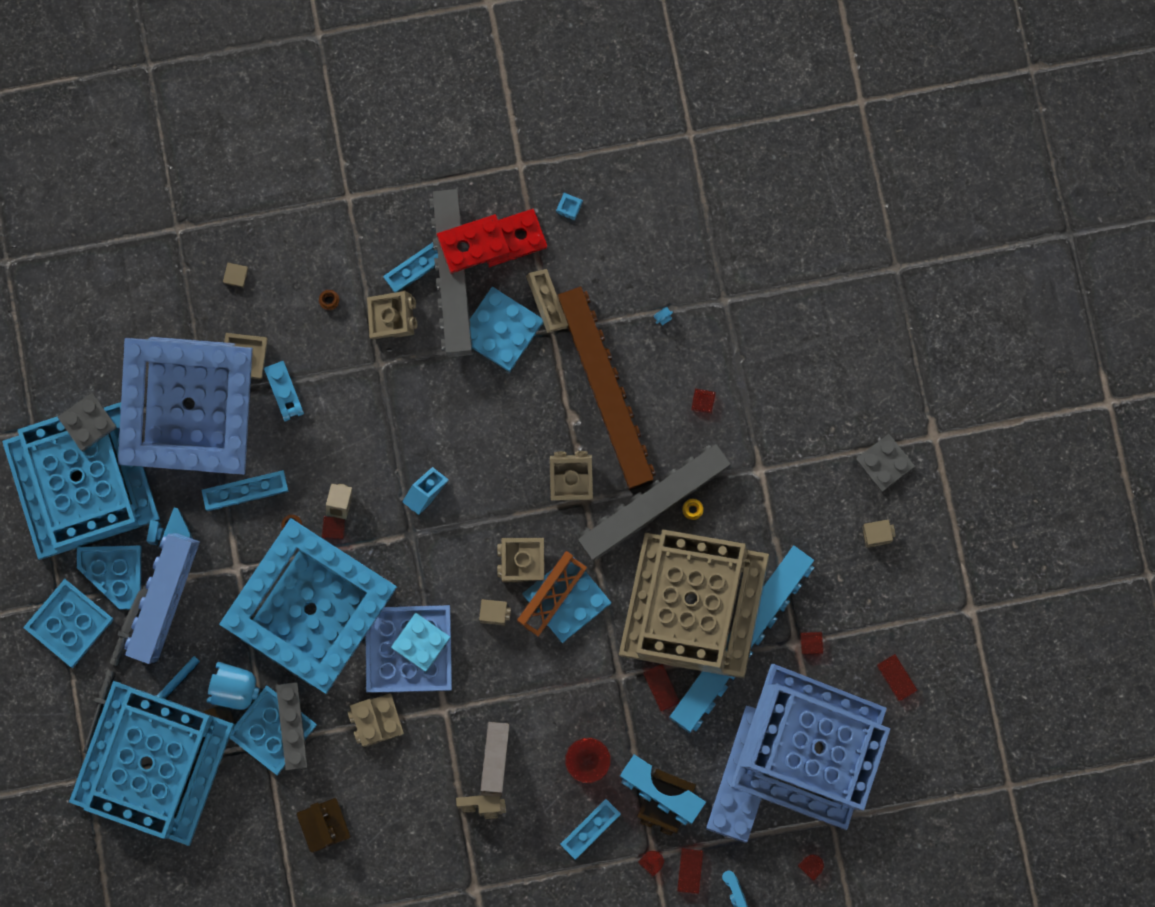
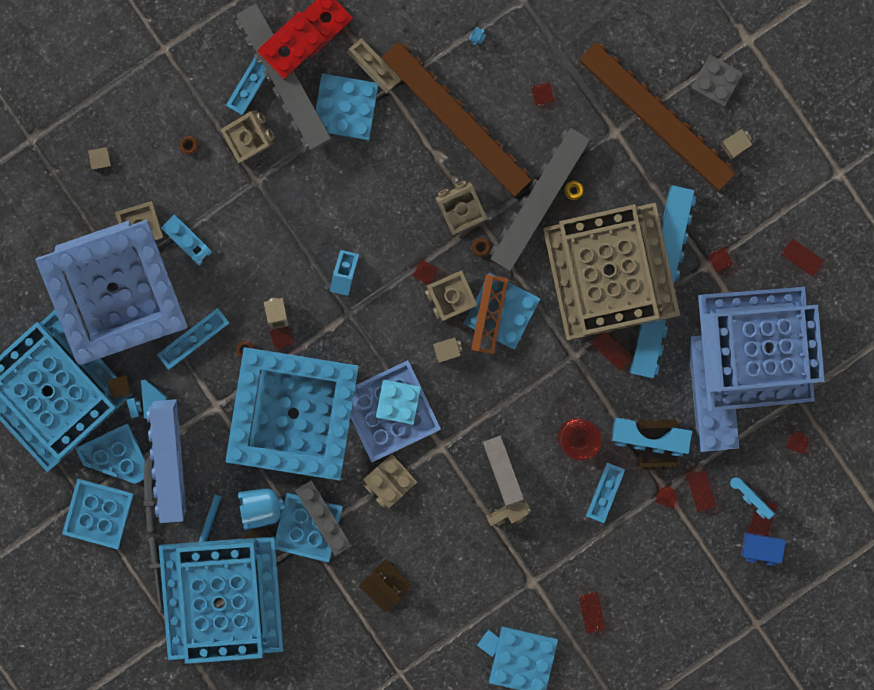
camera: 25 degrees left, 10 degrees up
(87, 422) = (35, 342): dark grey plate -> none
(149, 505) = (119, 387): none -> dark brown tile
(507, 525) = (425, 272): none -> clear red tile
(574, 519) = (481, 253): none -> reddish brown plate
(808, 472) = (656, 116): none -> reddish brown brick

